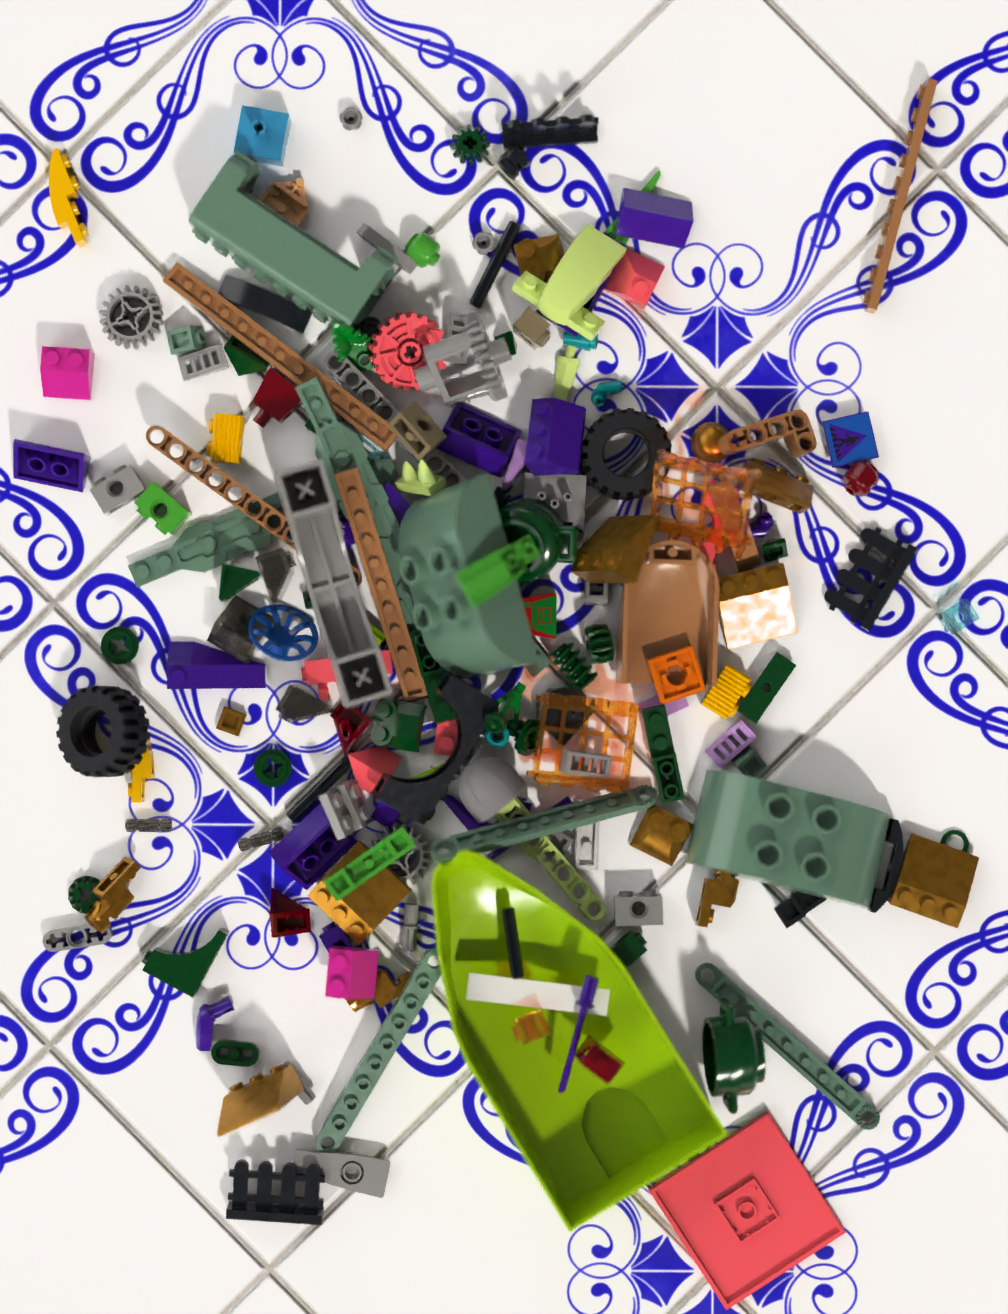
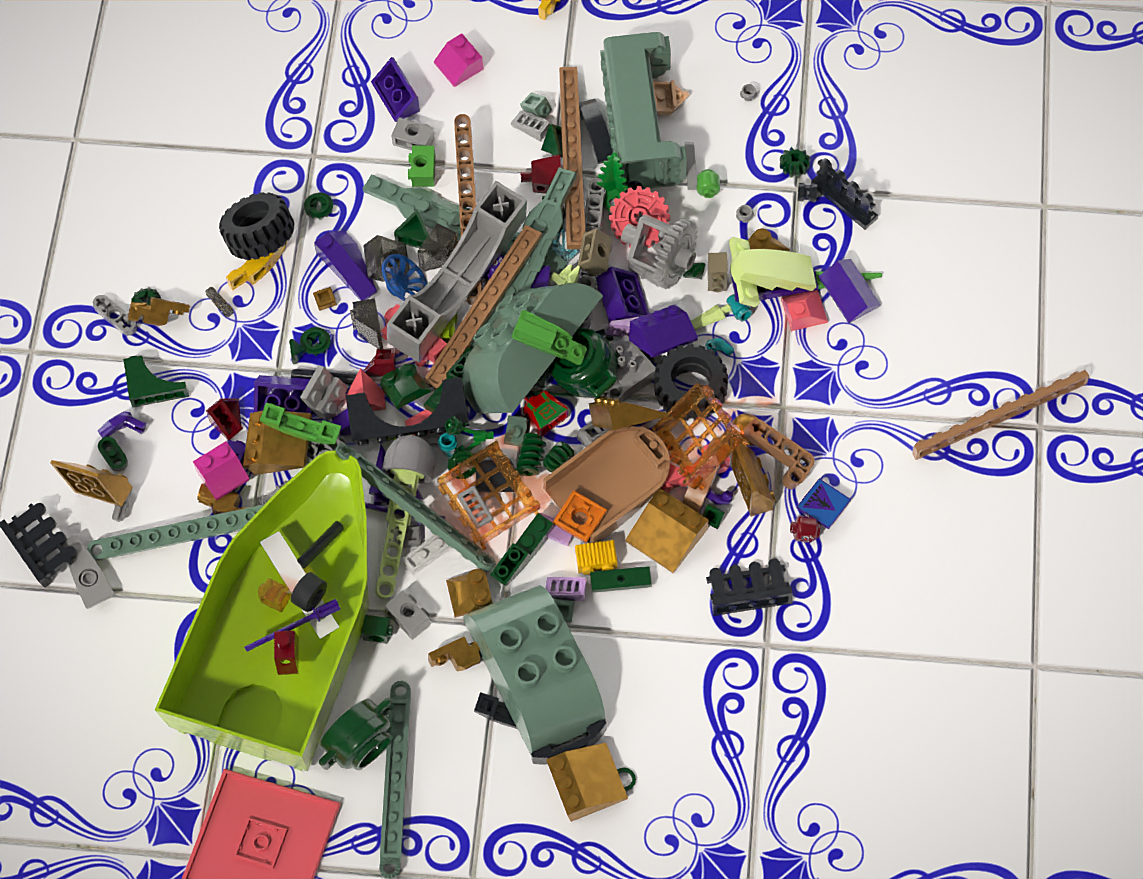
camera: 55 degrees right, 25 degrees down
(122, 321) = (519, 63): light grey gear -> none
(226, 438) = (496, 167): yellow brick -> none
(261, 839) = (262, 367): clear smoke axle -> none
(263, 135) = (693, 55): dark azure brick -> none
(269, 796) = (296, 351): none -> dark green slope
(494, 264) = (737, 229): black axle -> none
(562, 997) = (308, 592): none -> black tyre
(948, 616) = (774, 664): clear light blue brick -> none

